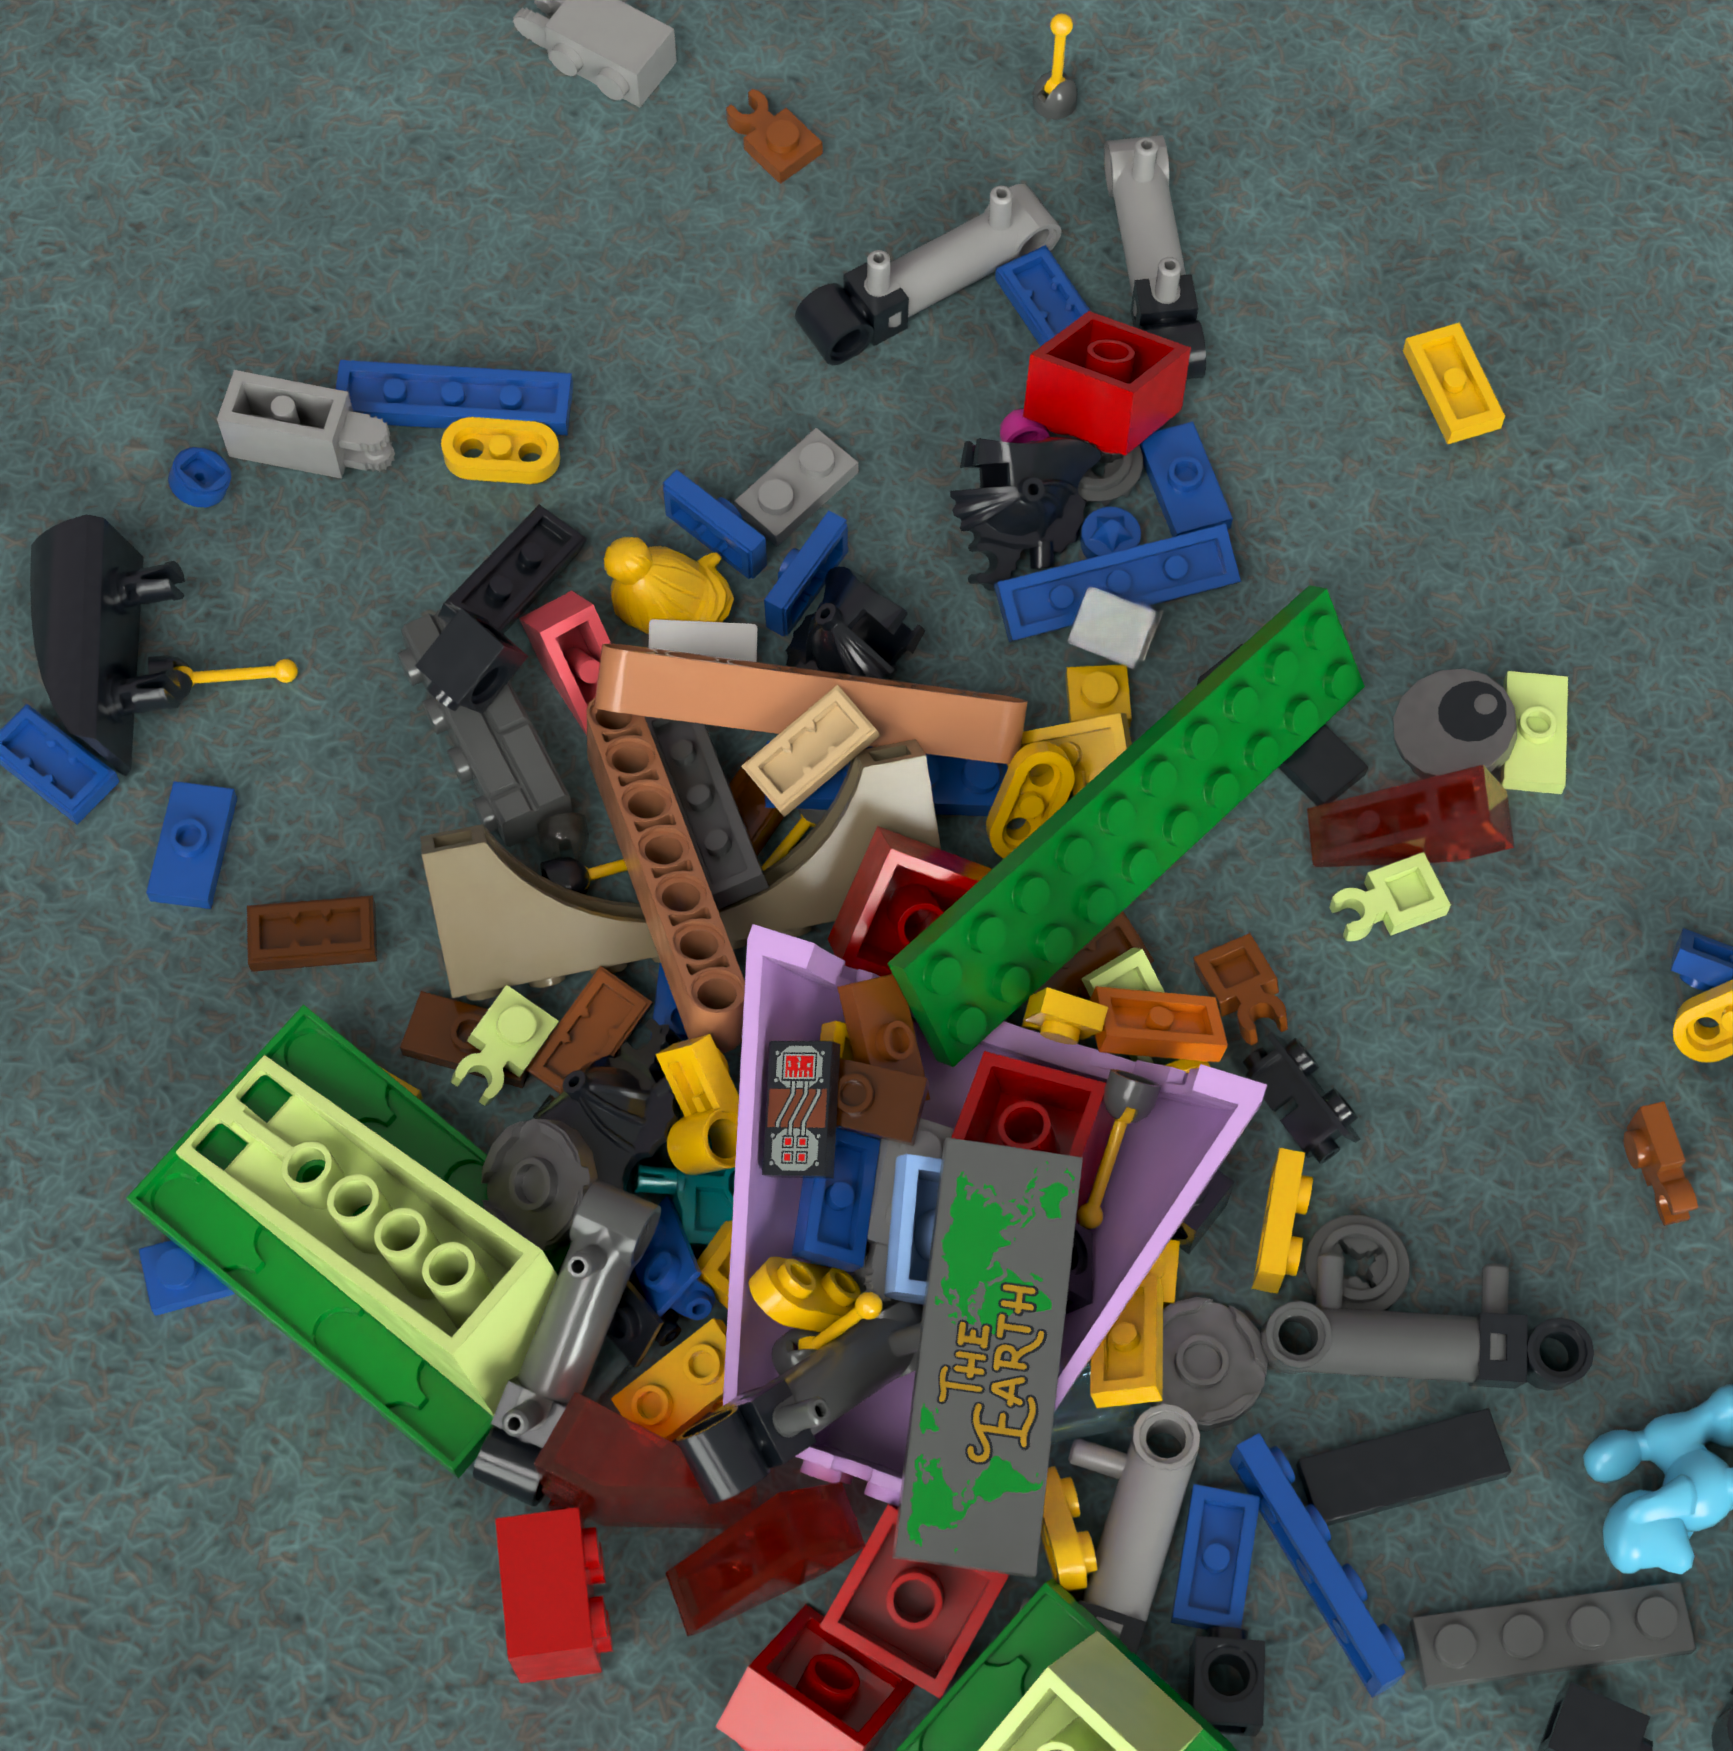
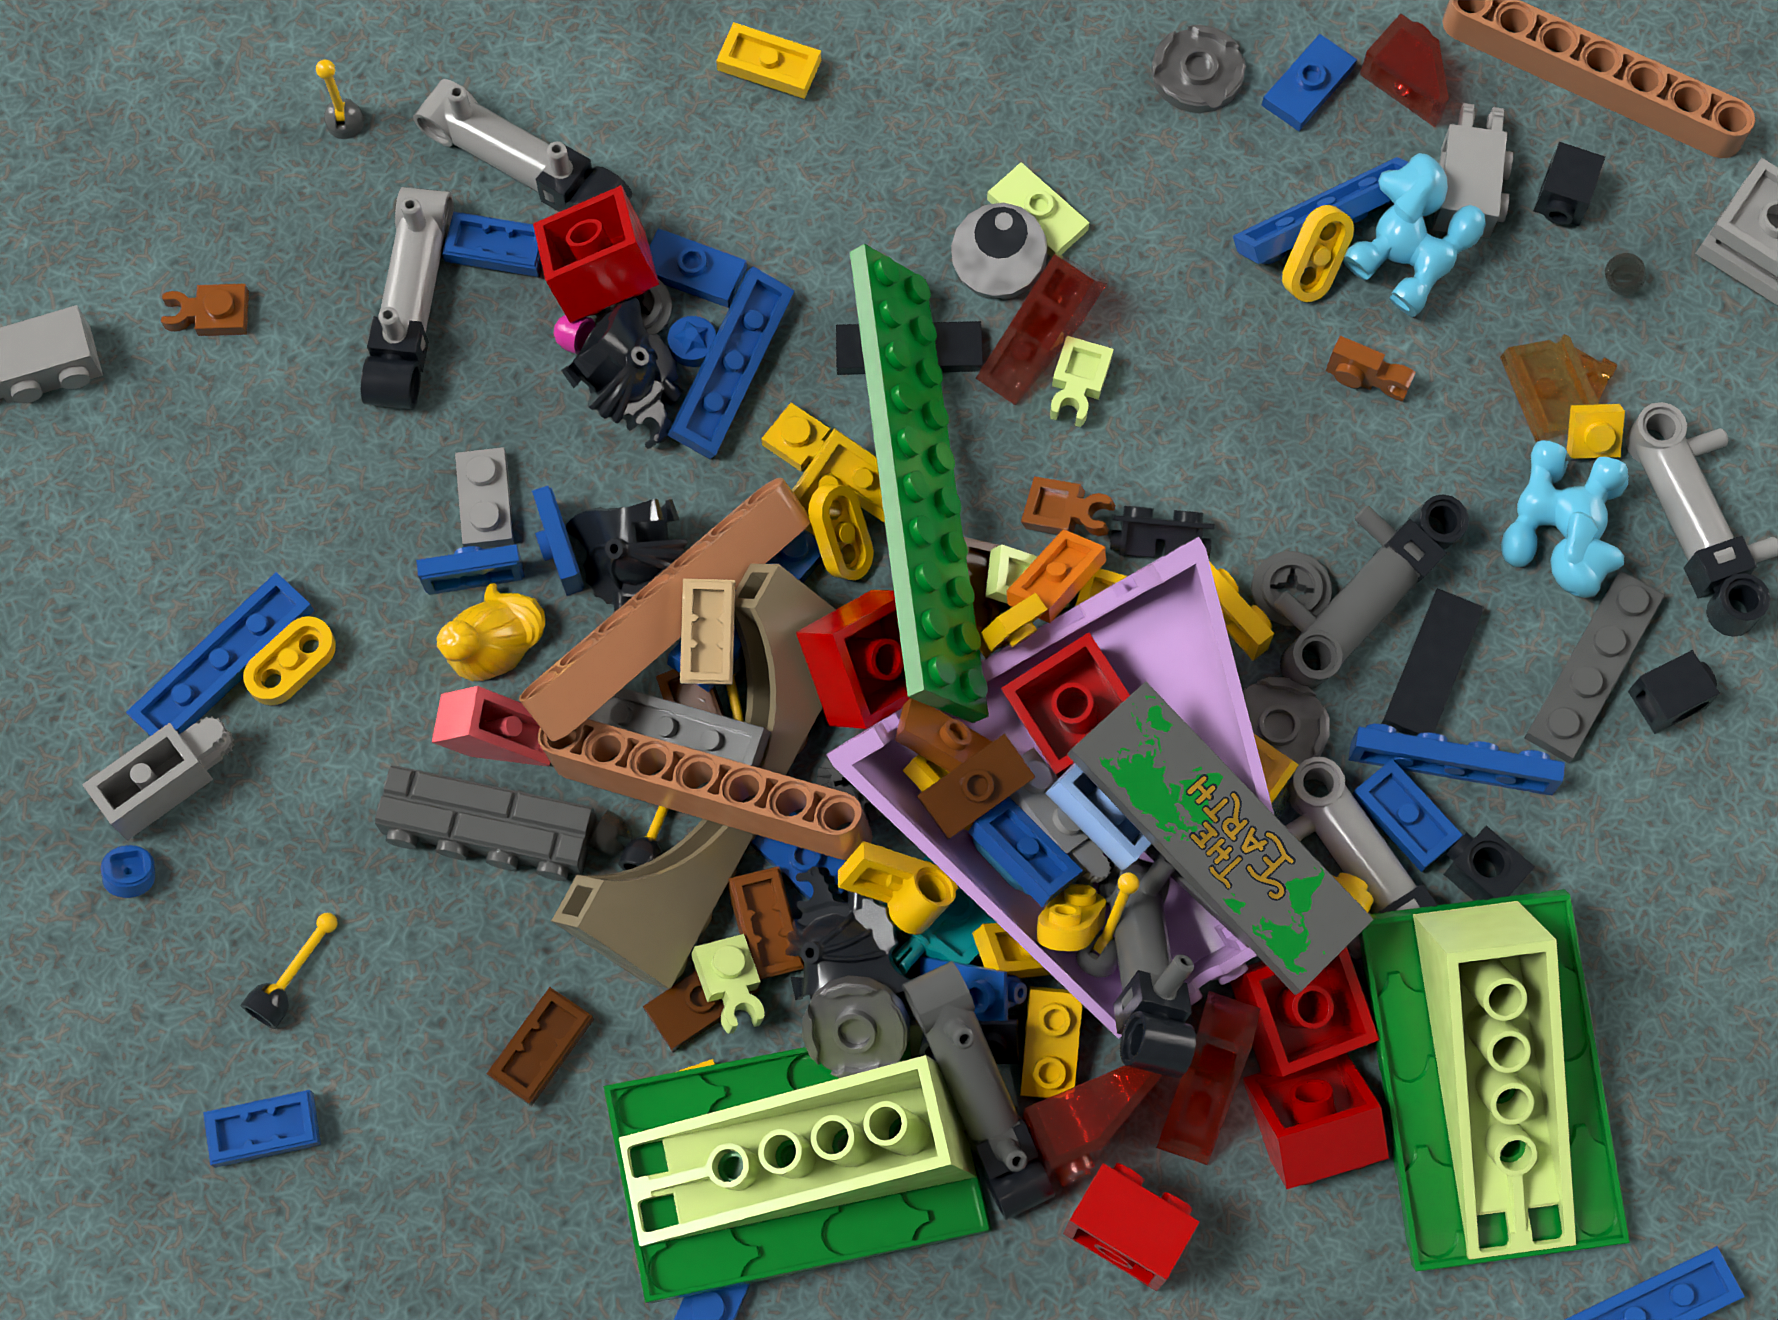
camera: 50 degrees left, 5 degrees up
(87, 627) = (181, 1030): black piece -> none
(192, 845) = (404, 1078): blue plate -> none
(470, 662) = (453, 795): black brick -> none
(517, 570) = (399, 723): black tile -> none
(705, 638) = (550, 642): white sticker -> none
(801, 1109) = (962, 824): tile -> none
(1114, 627) = (766, 387): clear smoke panel -> none
(1128, 1101) = (1110, 628): hinge -> none

